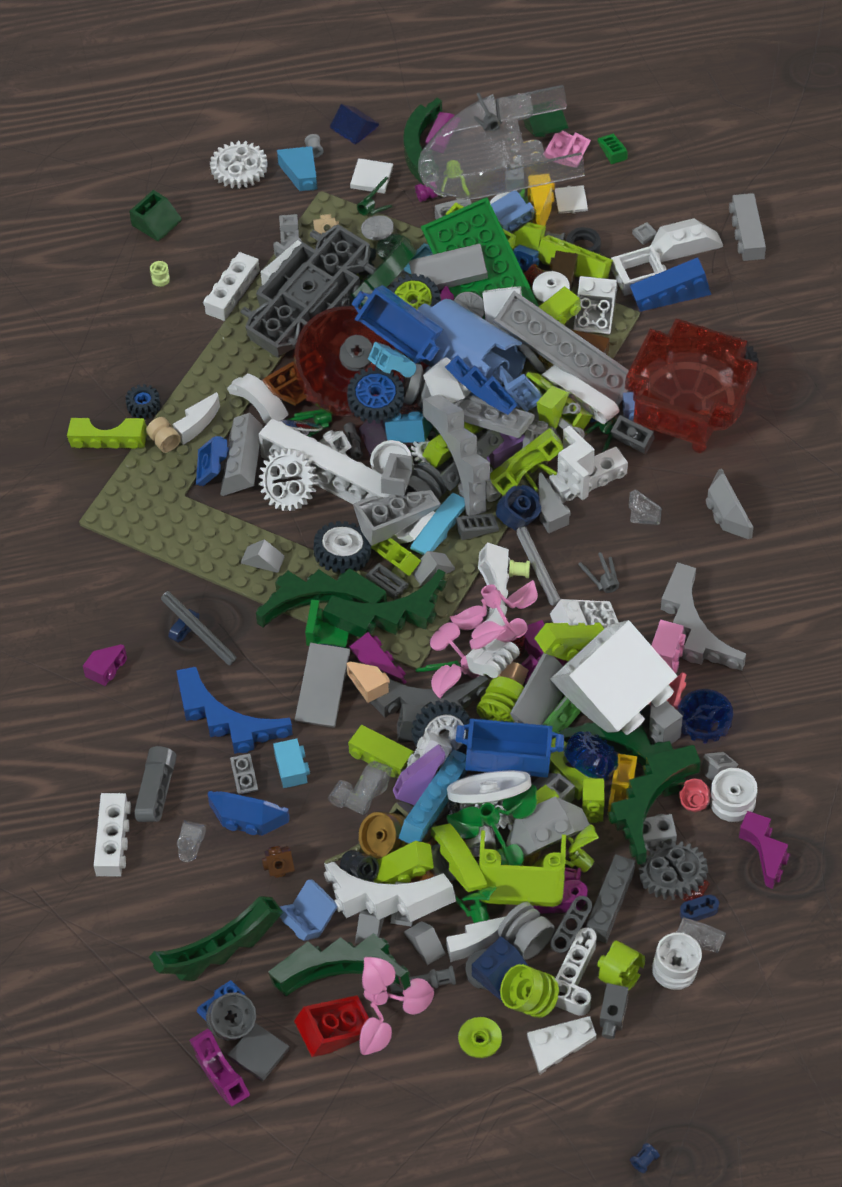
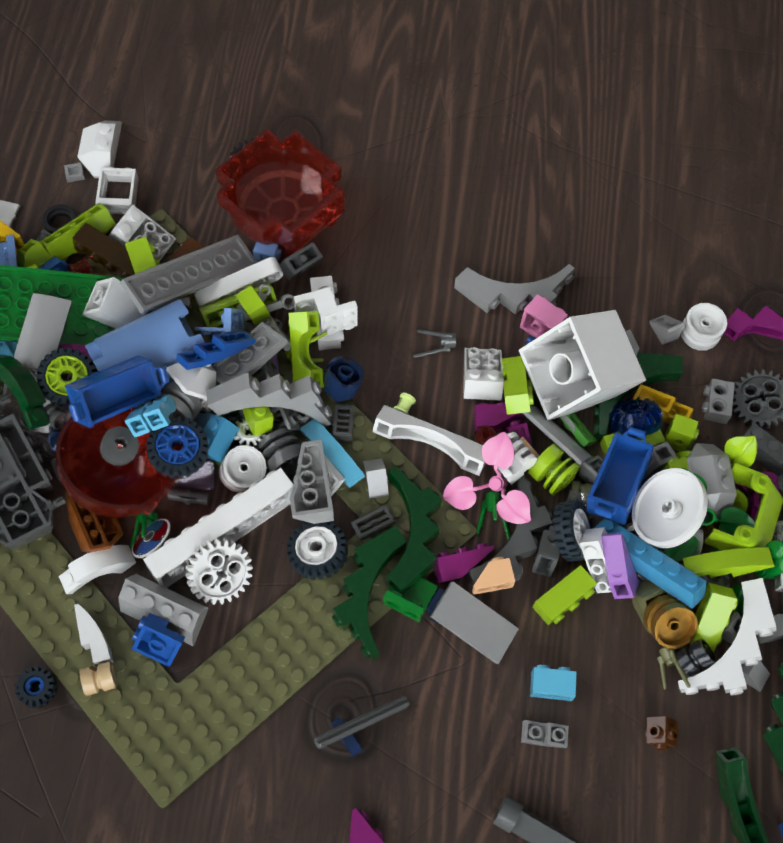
camera: 75 degrees left, 10 degrees up
(128, 434) = (49, 765): lime arch -> none
(190, 840) = (605, 812): clear piece -> none
(221, 720) = (446, 752): blue arch -> none
(247, 813) = (596, 748): blue wedge -> none
(263, 556) = (296, 629): light grey slope -> none
(309, 911) = (727, 723): medium blue bracket -> none
(336, 440) = (189, 512): white brick -> none
(343, 795) = (604, 643): clear piece -> none
(373, 780) = (602, 612): clear slope -> none
(396, 474) = (275, 465): light grey panel -> none
(397, 555) = (353, 501): lime slope -> none
(471, 302) = (89, 331): light grey wheel -> none
(492, 597) = (438, 412): bright pink plant -> none
(538, 566) = (412, 389): light grey axle -> none
(541, 286) = (113, 265): white dish -> none
(553, 512) = (356, 351): light grey slope -> none
(604, 428) = (282, 281): dark green plant -> none
(643, 509) = (382, 286): clear slope -> none
(660, 773) = (693, 390): dark green arch -> none
(671, 286) = (151, 172): blue wedge -> none
(695, 795) = (694, 355): coral hair -> none
(701, 710) = (626, 309): clear blue gear -> none
(727, 508) = (406, 220): light grey wedge -> none
(747, 226) = (115, 94): light grey brick -> none

